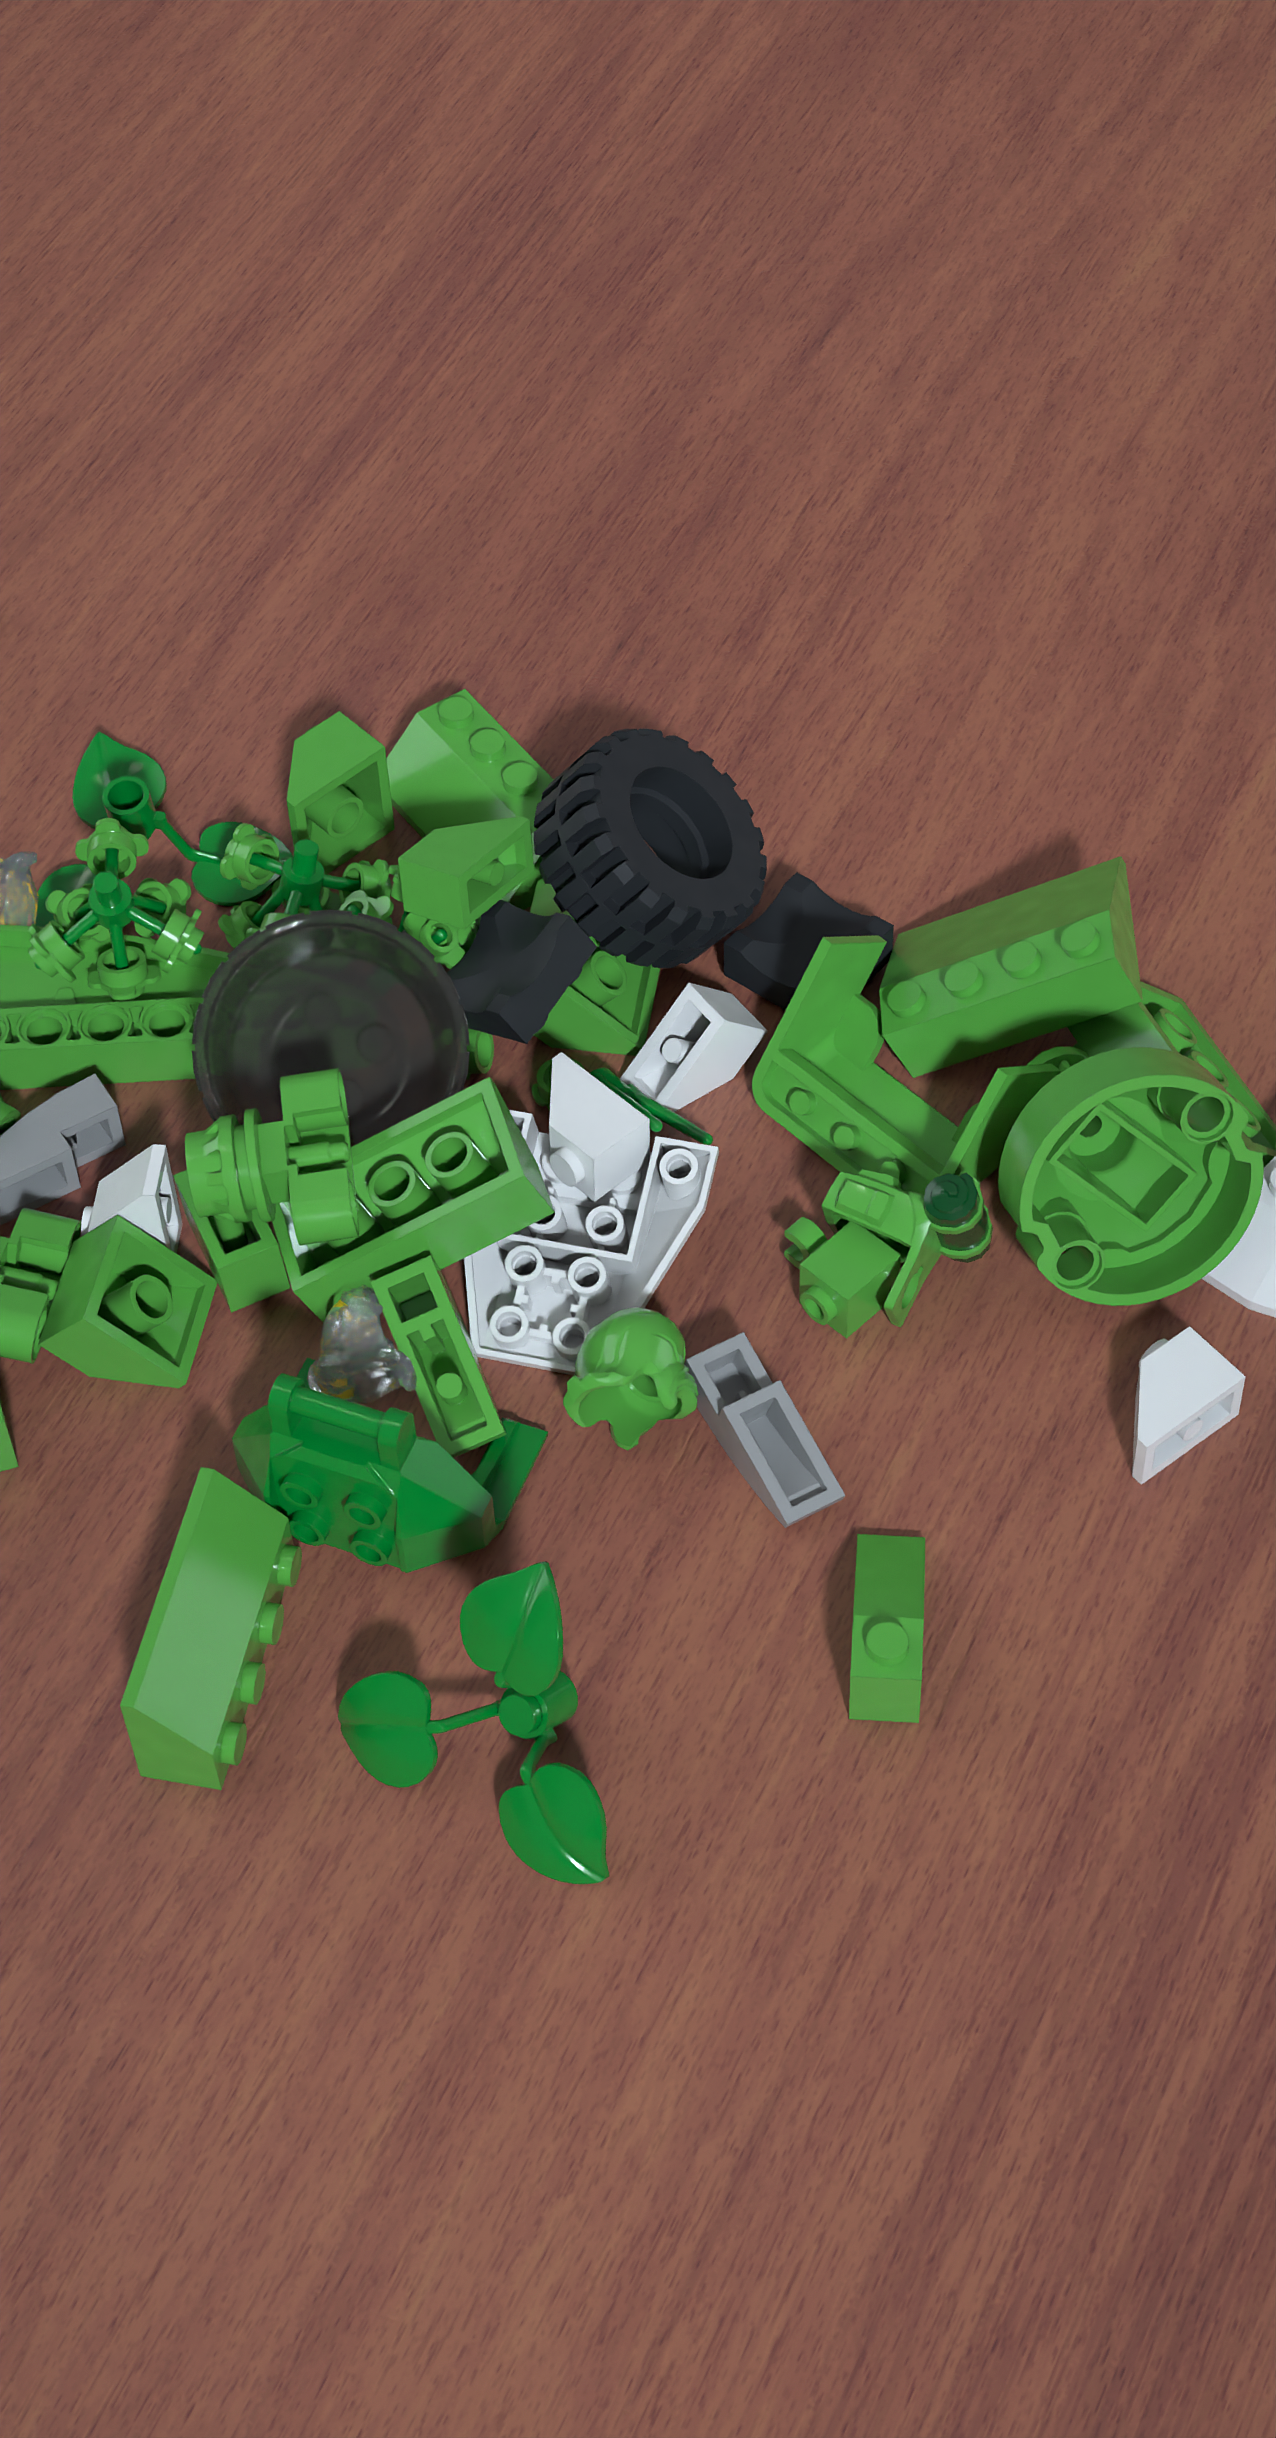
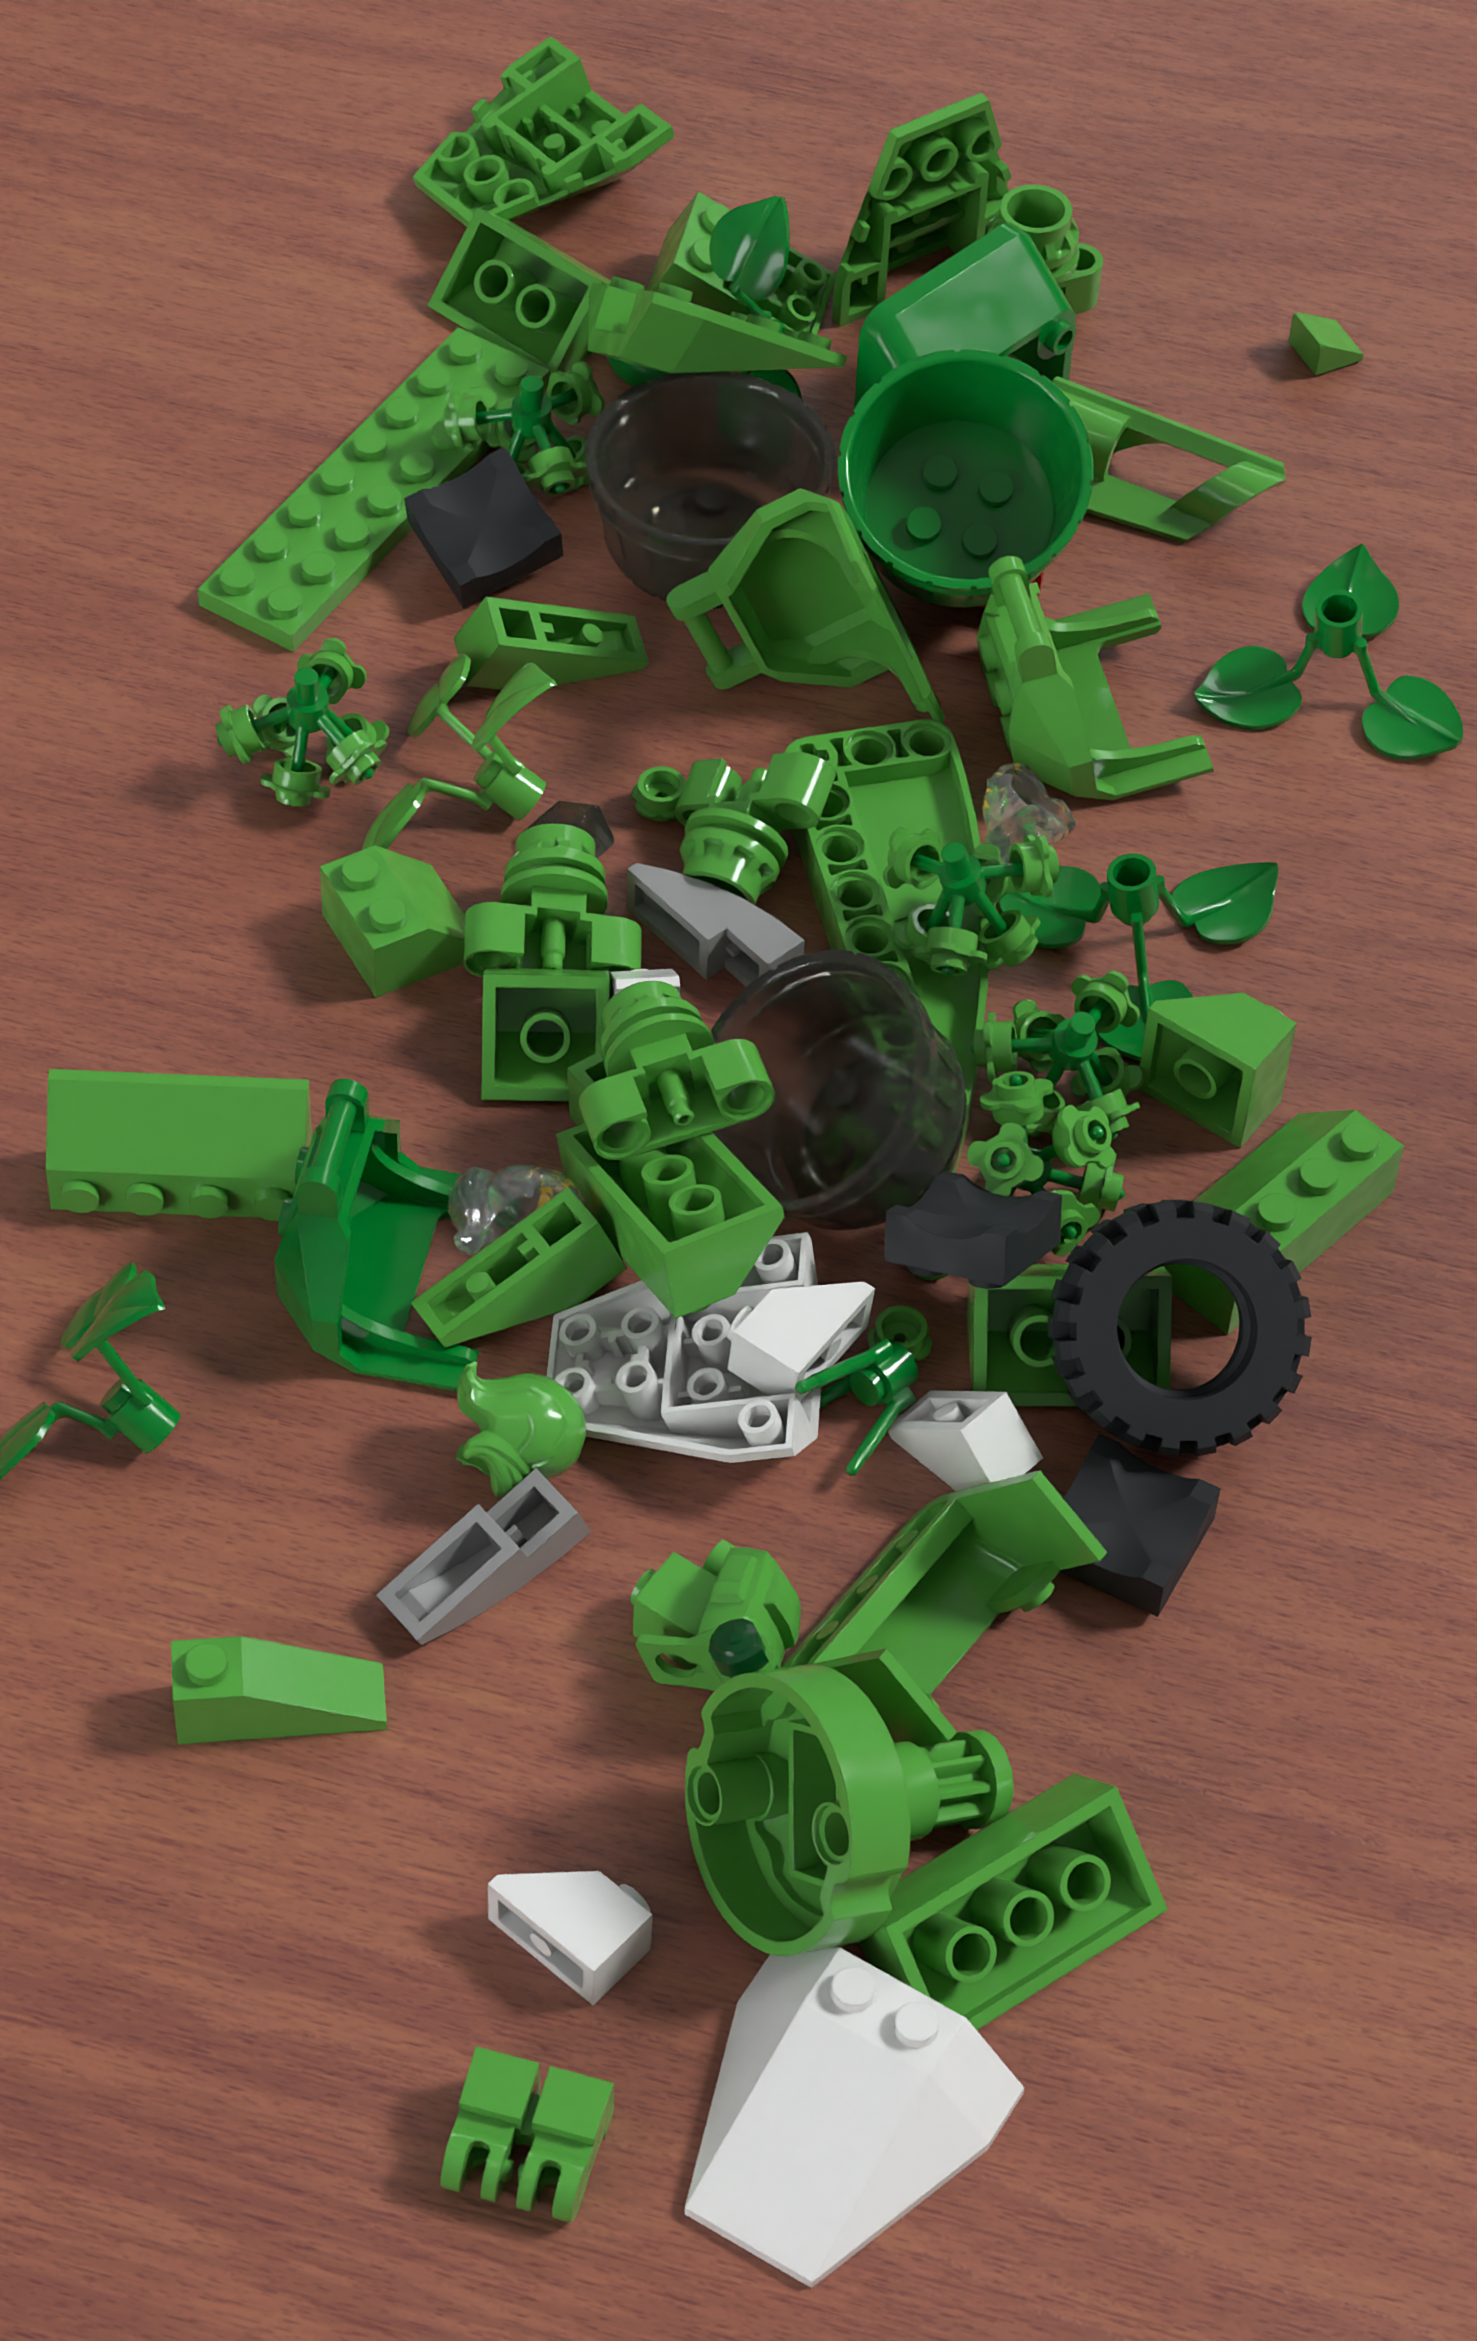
camera: 75 degrees right, 0 degrees up
(465, 869) = (1071, 1153): bright green slope -> none
(1011, 969) = (1120, 1697): bright green slope -> none

